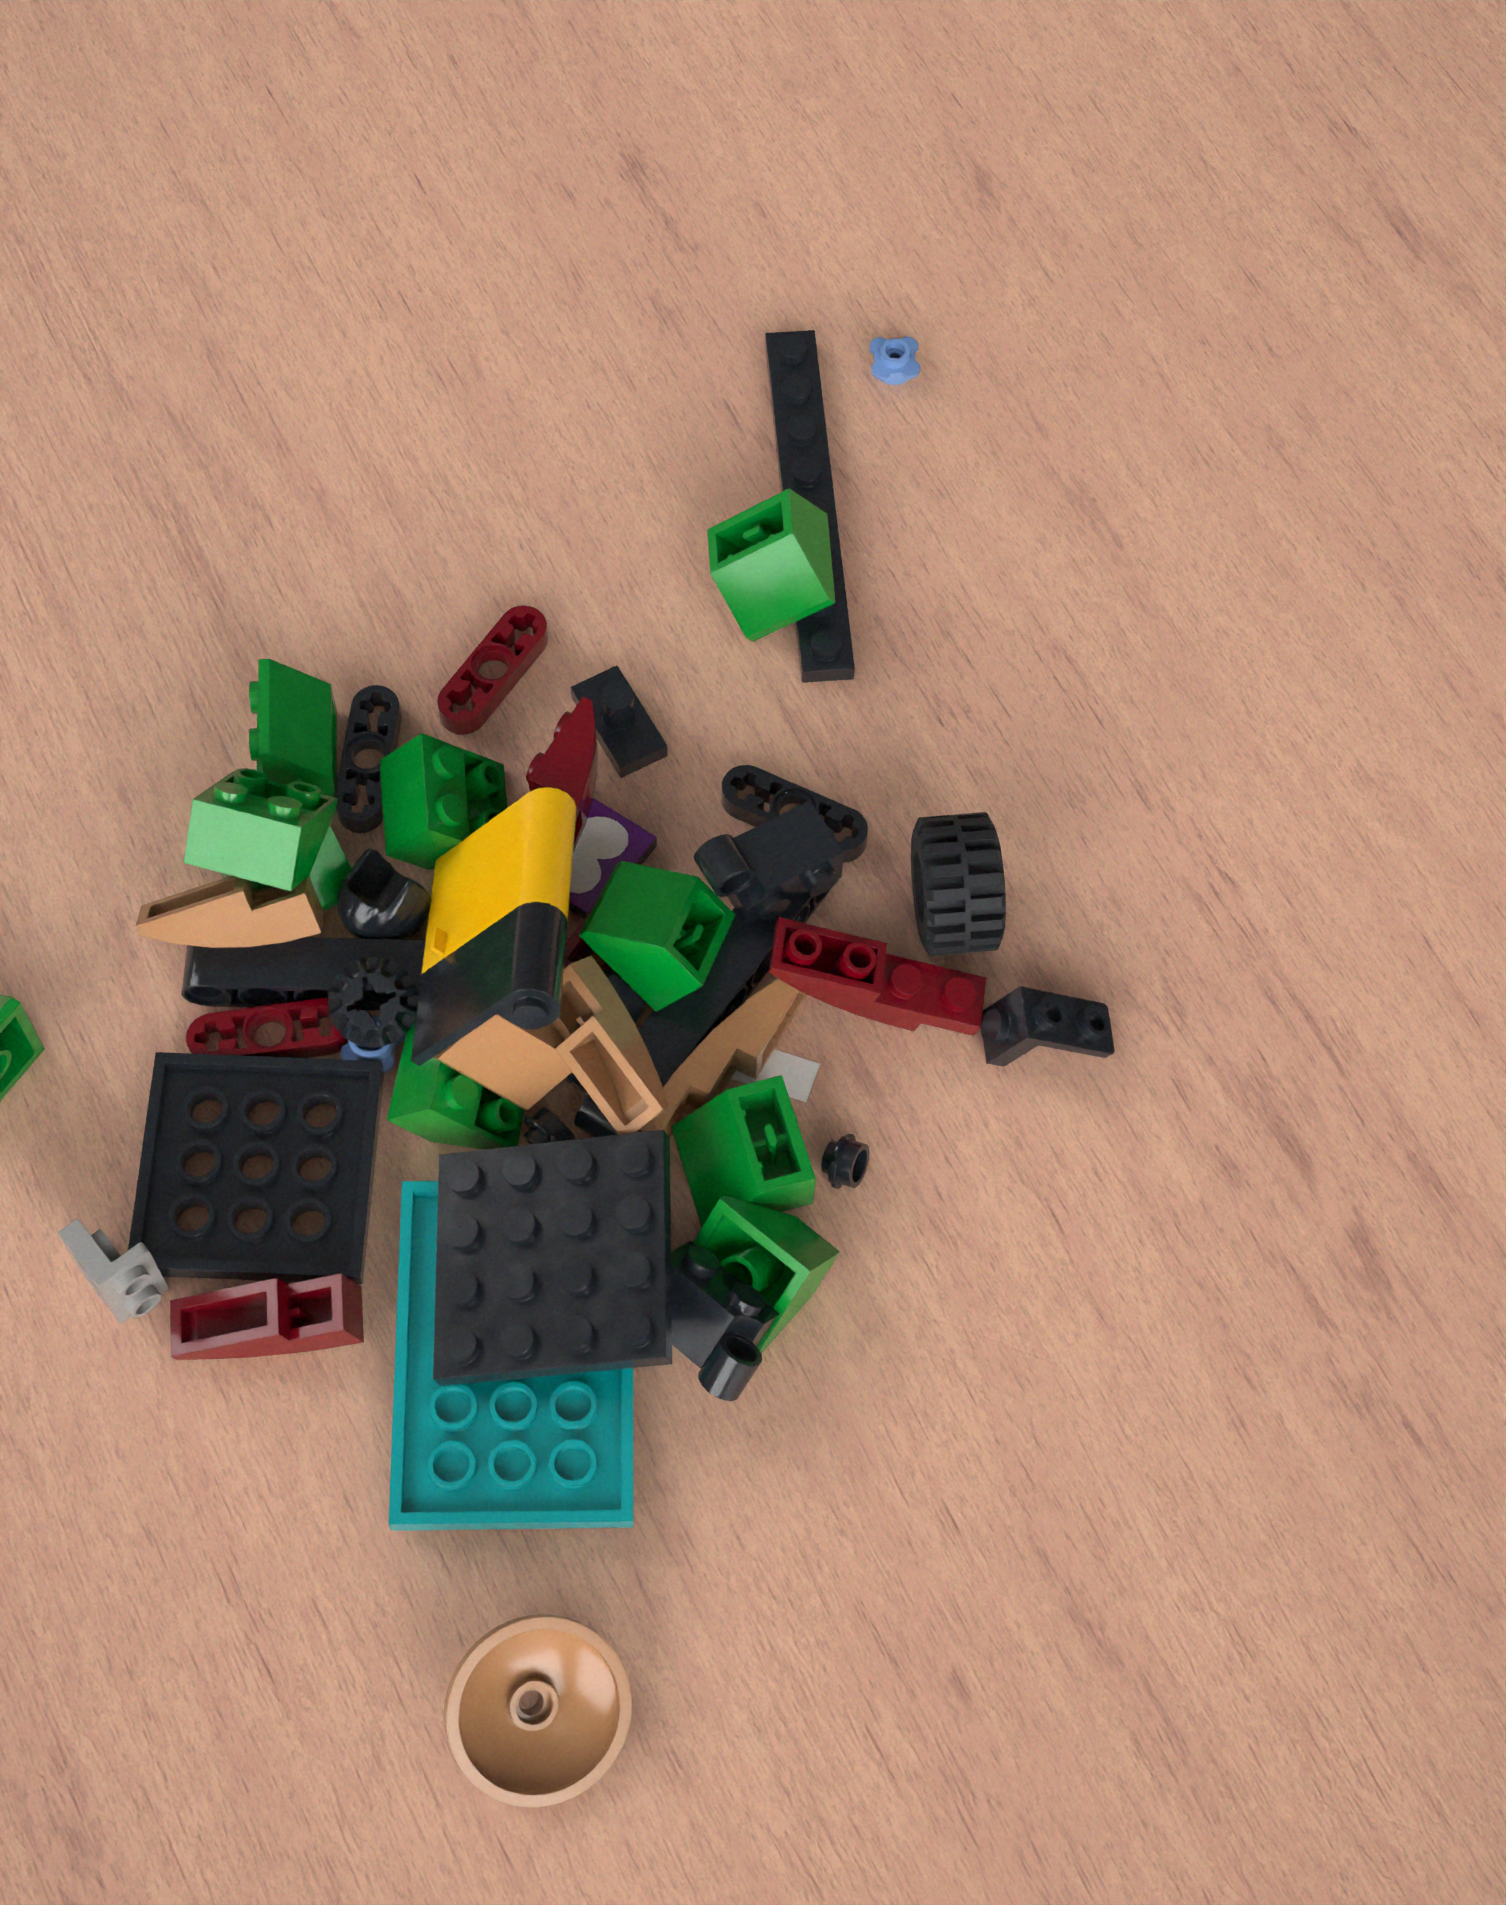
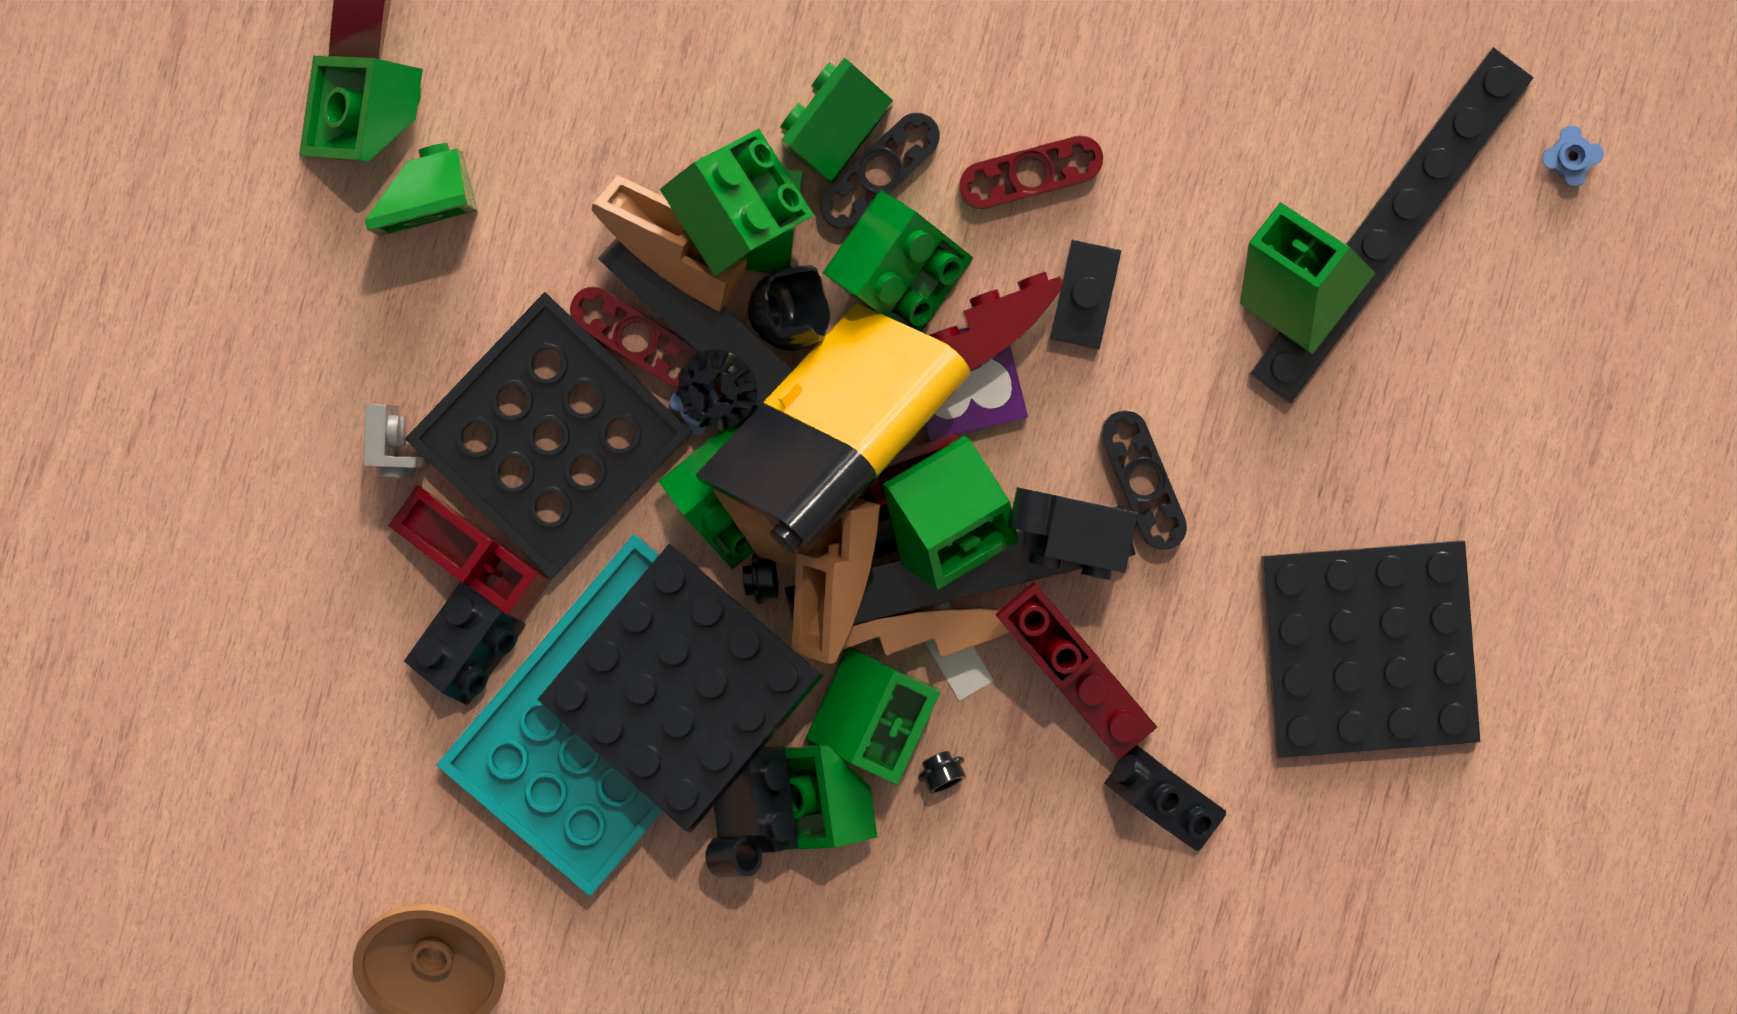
camera: 40 degrees right, 25 degrees up
(327, 1400) = (464, 644): none -> black bracket
(958, 883) = (1192, 653): black tyre -> none
(1094, 795) = (1370, 648): none -> black plate

